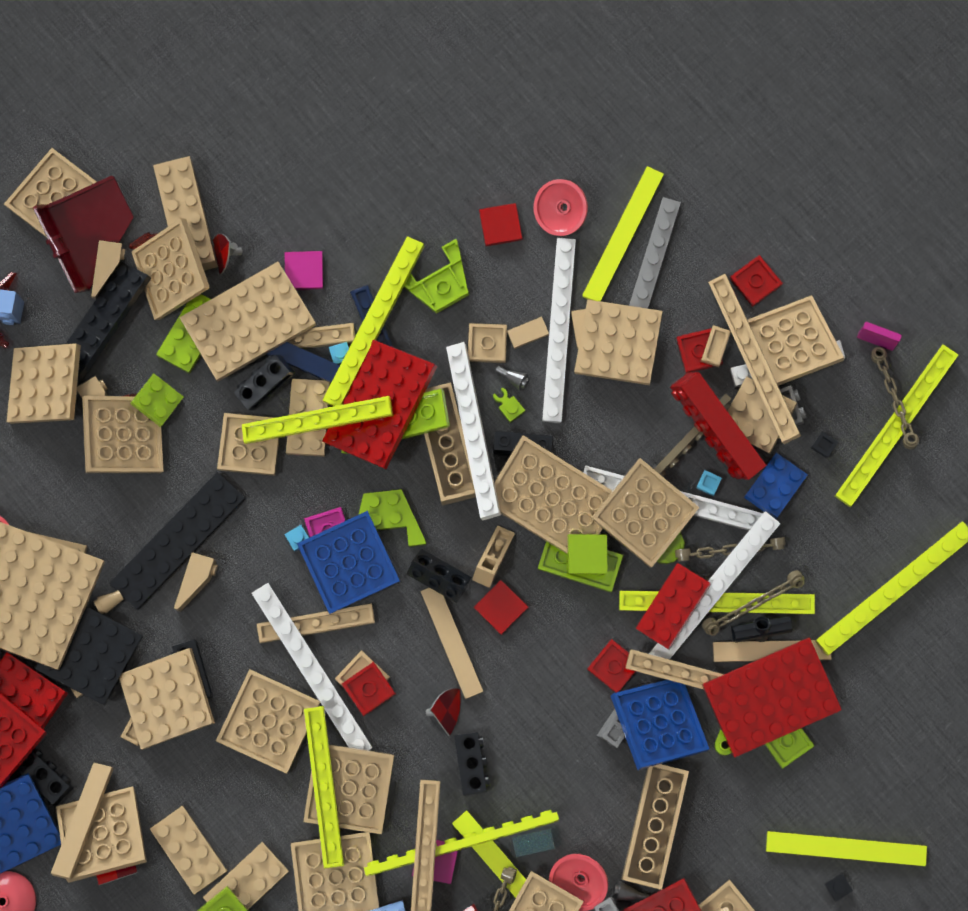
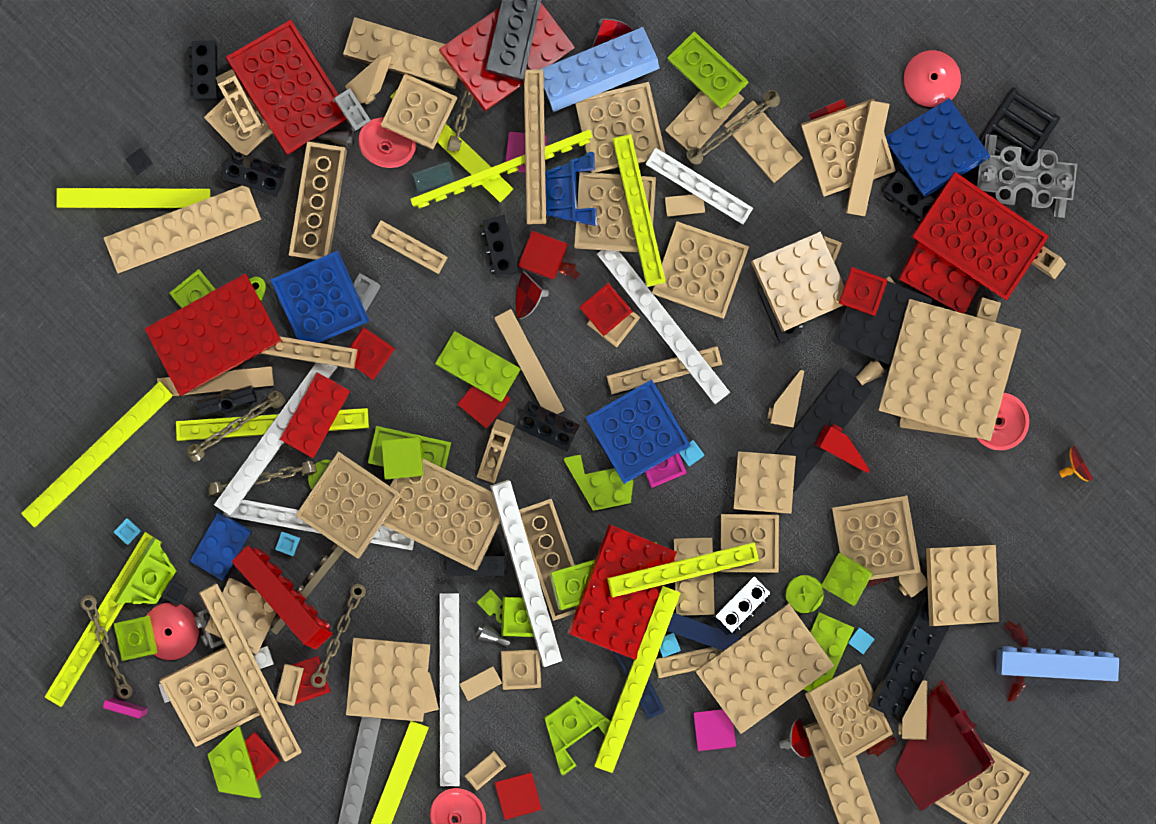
camera: 170 degrees right, 10 degrees up
(104, 681) = (863, 291): none -> red tile
(148, 530) = (839, 444): none -> red slope
(151, 342) = (861, 640): none -> medium azure tile
(174, 892) = (695, 154): none -> dark tan piece
(201, 391) = (804, 593): none -> lime tile
(227, 501) = (764, 482): none -> tan plate
(259, 808) = (699, 186): none -> white plate
(276, 790) = (684, 205): none -> tan tile
(401, 814) = (562, 194): none -> blue wing
(405, 735) = (569, 268): none -> clear red bar
(427, 751) = (543, 255): none -> red tile
(488, 390) = (515, 618): none -> lime plate
(504, 643) = (478, 366): none -> lime plate
(530, 251) = (485, 770): none -> tan tile
(563, 771) = (409, 247): none -> tan plate
(662, 393) = (335, 640): none -> dark tan piece
(719, 862) = (253, 173): none -> black brick
(775, 273) = (234, 767): none -> lime wing
(796, 812) = (182, 228): none -> tan plate
(823, 418) = (183, 627): none -> coral dish
(850, 460) = (148, 577): none -> lime wing
(865, 403) = (135, 638): none -> lime tile
(868, 508) = (127, 531): none -> medium azure plate

